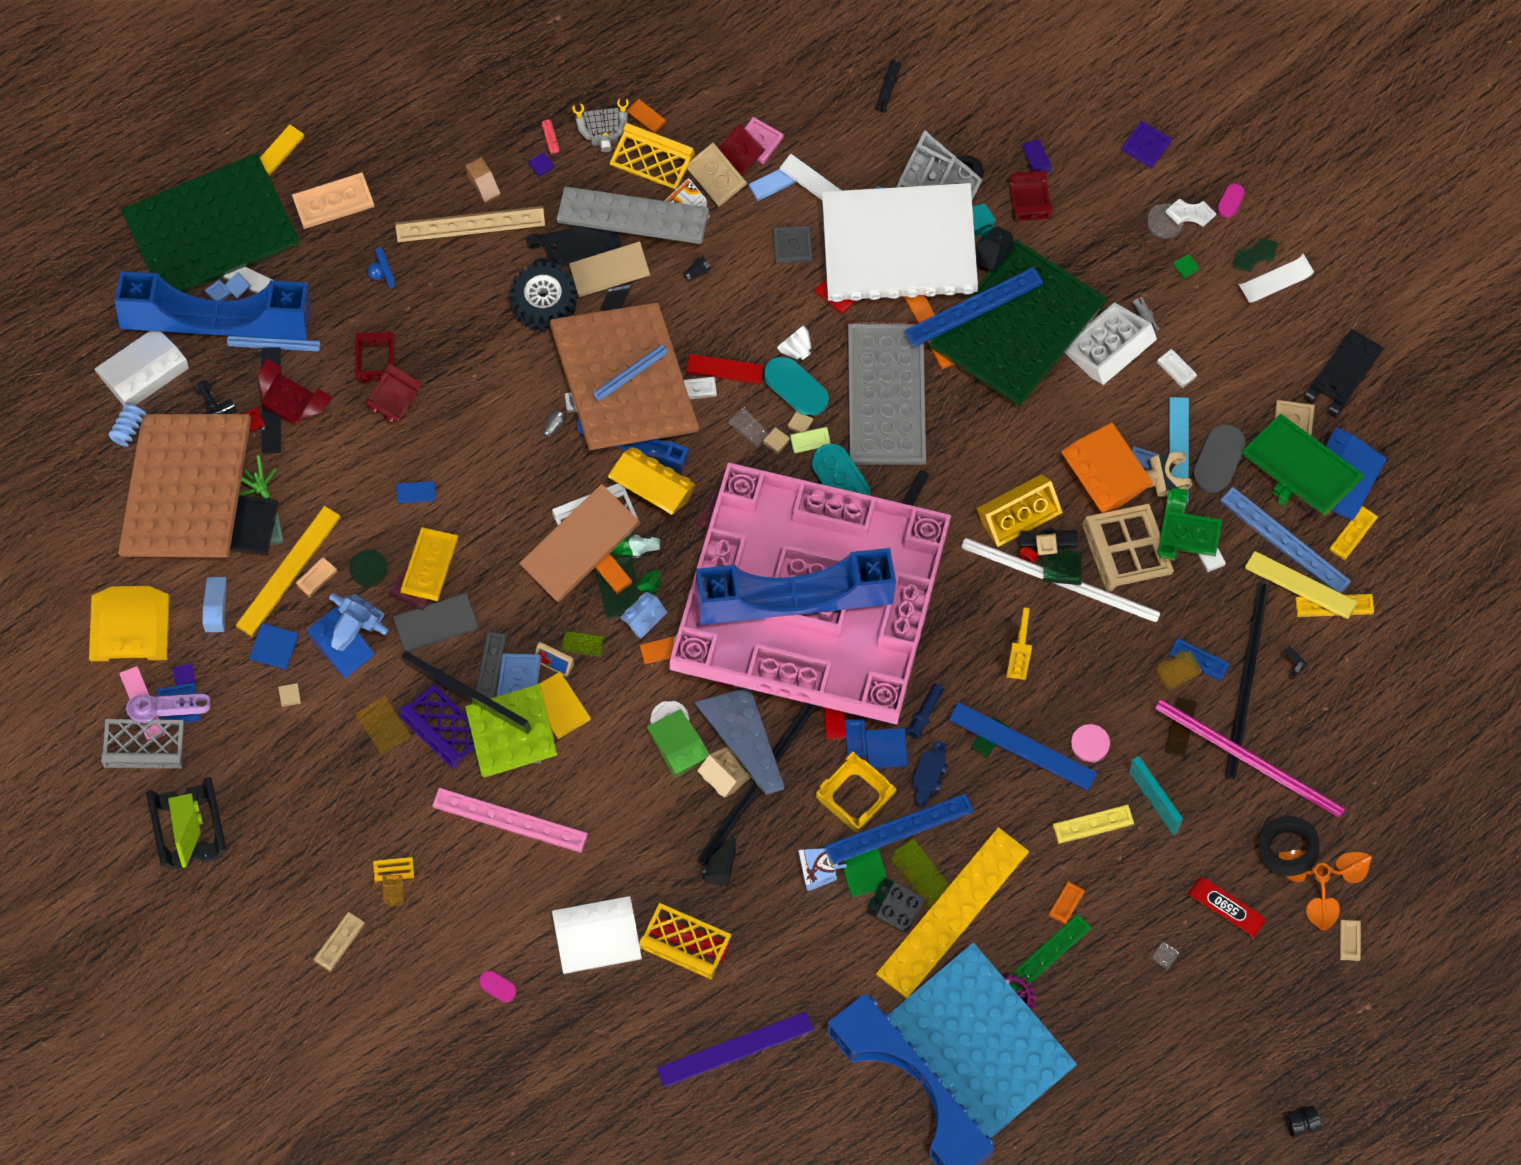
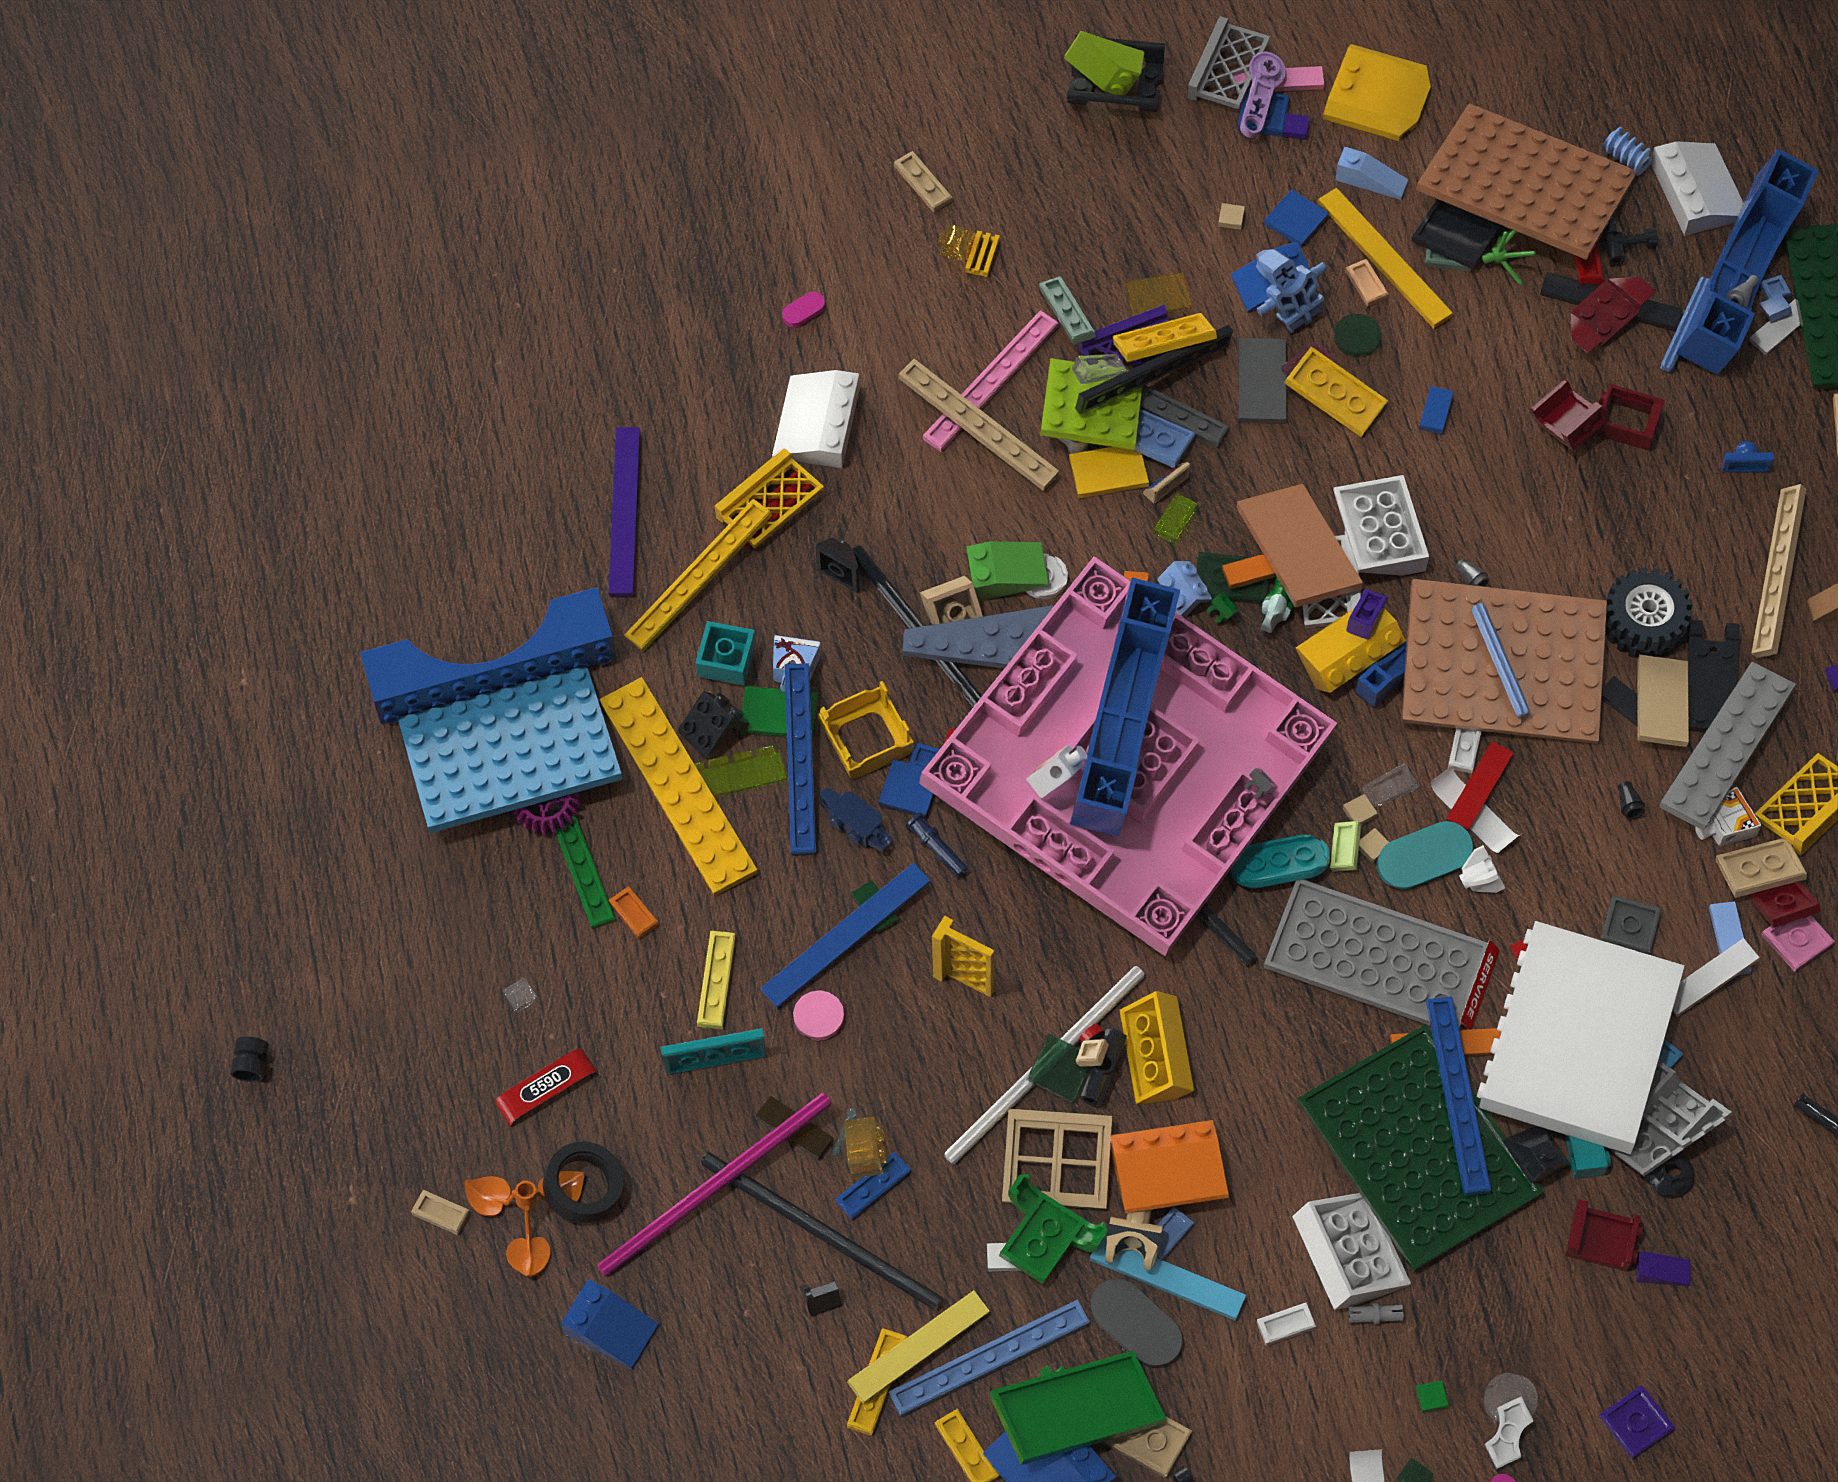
camera: 115 degrees right, 5 degrees down
(242, 305) = (1742, 293): none -> light grey cone
(429, 781) = (1067, 310): none -> sand green tile
(433, 696) = (1164, 337): none -> yellow tile
(480, 733) = (1097, 367): none -> clear slope
(541, 490) = (1382, 527): none -> white slope
(559, 810) = (978, 424): none -> tan plate
(627, 472) = (1366, 614): none -> dark purple slope
(753, 353) = (1487, 824): none -> white sticker
(773, 966) = (697, 575): none -> yellow tile
(801, 490) = (1262, 781): none -> dark grey tile
(834, 916) = (725, 653): none -> teal brick
(859, 622) = (1056, 770): none -> white torso
(1152, 693) = (851, 1112): none -> clear light blue hinge
(1378, 791) = (608, 1324): none -> blue slope

